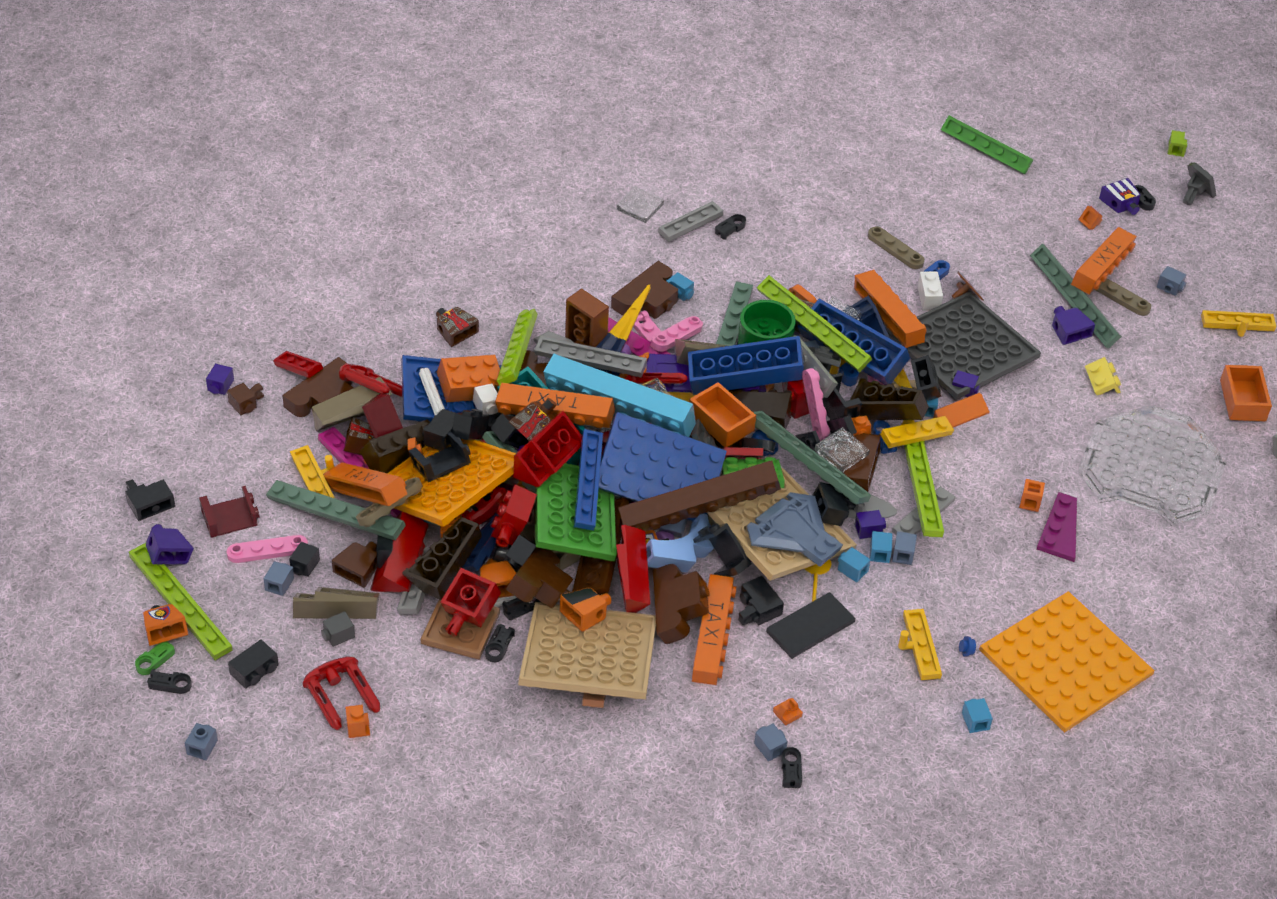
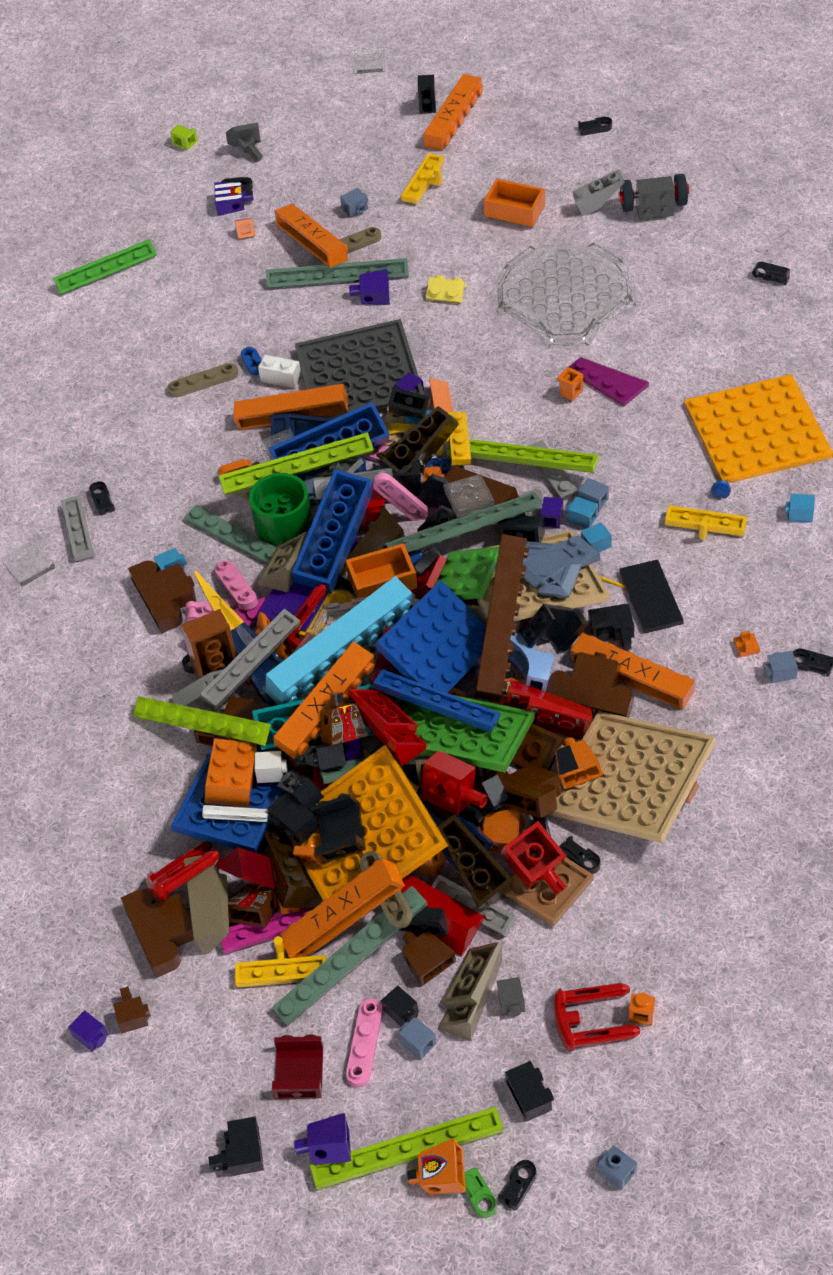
camera: 60 degrees left, 5 degrees up
(298, 364) = (106, 943): red tile -> none
(456, 325) = (120, 777): reddish brown torso -> none
(963, 288) = (289, 347): dark orange shield -> none

